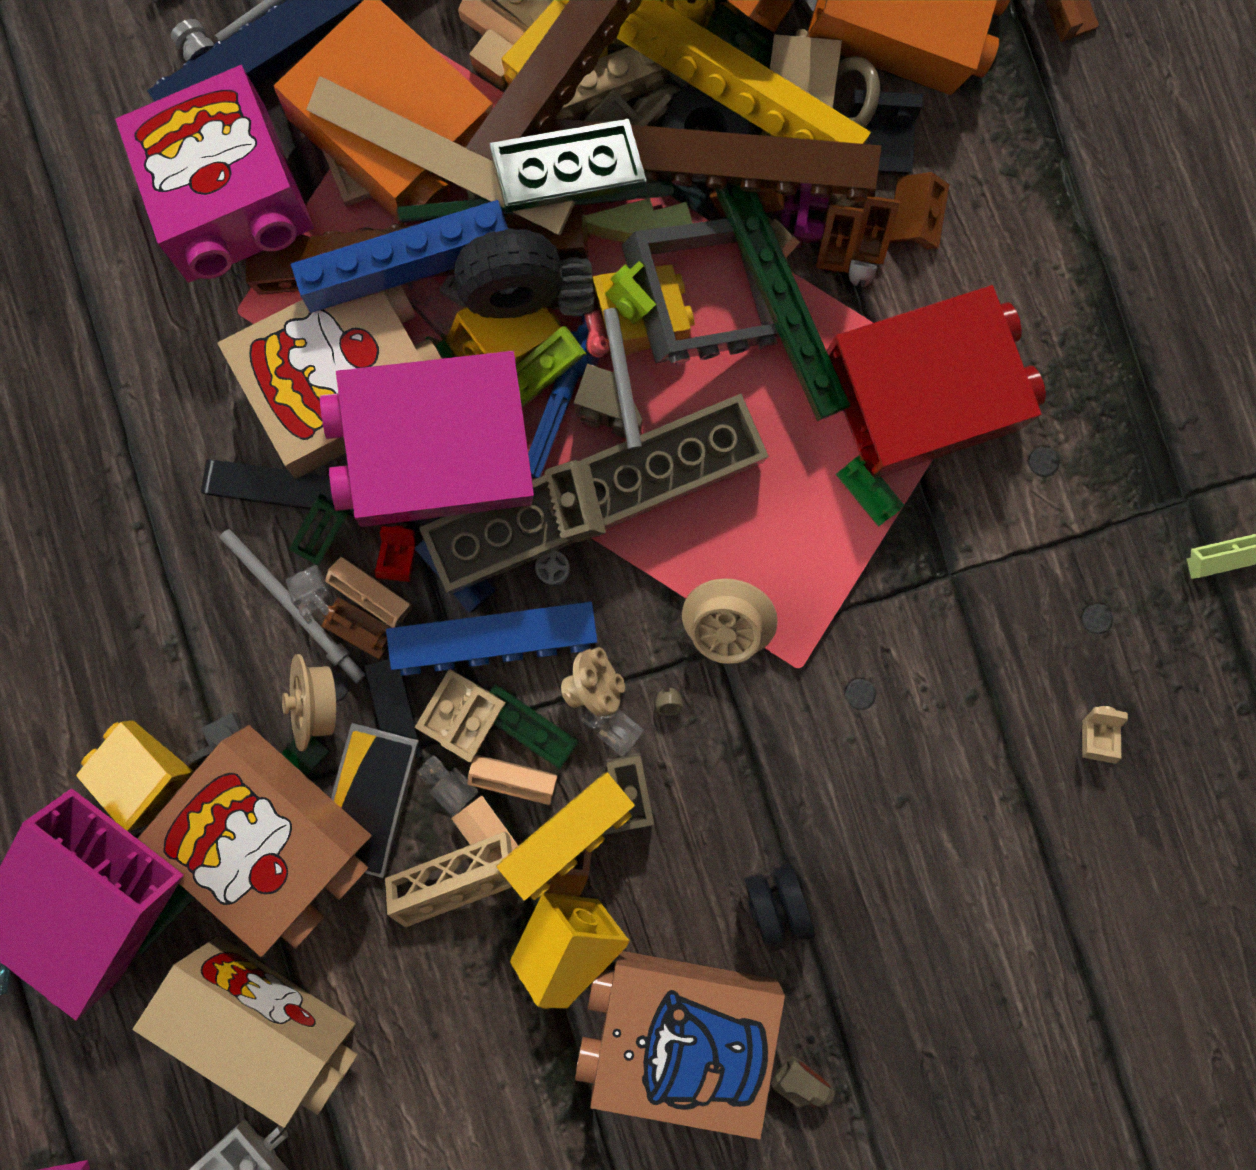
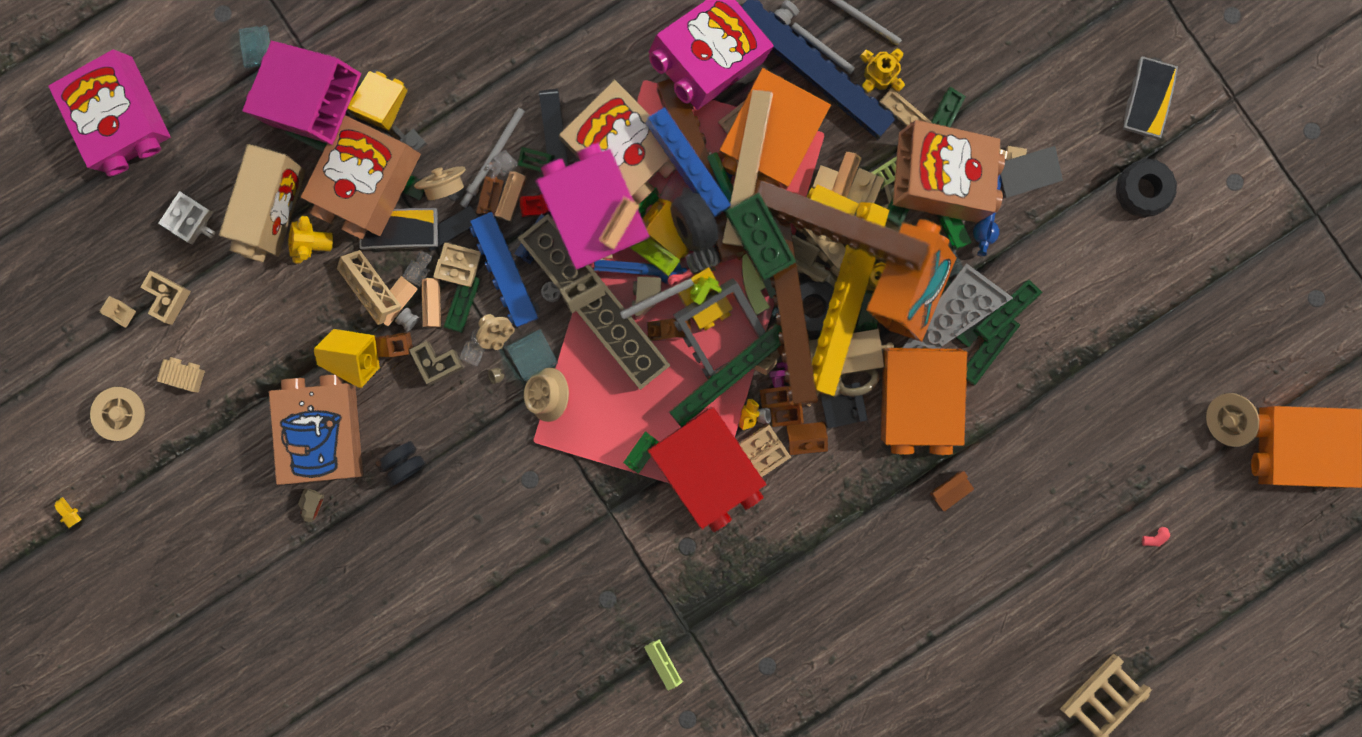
camera: 75 degrees right, 0 degrees up
(340, 971) = (304, 240): none -> yellow piece
(477, 393) = (619, 223): none -> light nougat piece
(526, 825) = (407, 319): none -> light grey wheel
(565, 836) = (406, 337): yellow brick -> none
(651, 630) = (532, 355): none -> clear light blue tile
(674, 390) = (665, 330): none -> dark orange slope
(854, 292) = (749, 414): none -> yellow piece
(917, 281) = (764, 450): none -> tan slope
(1103, 734) = (543, 617): tan bracket -> none

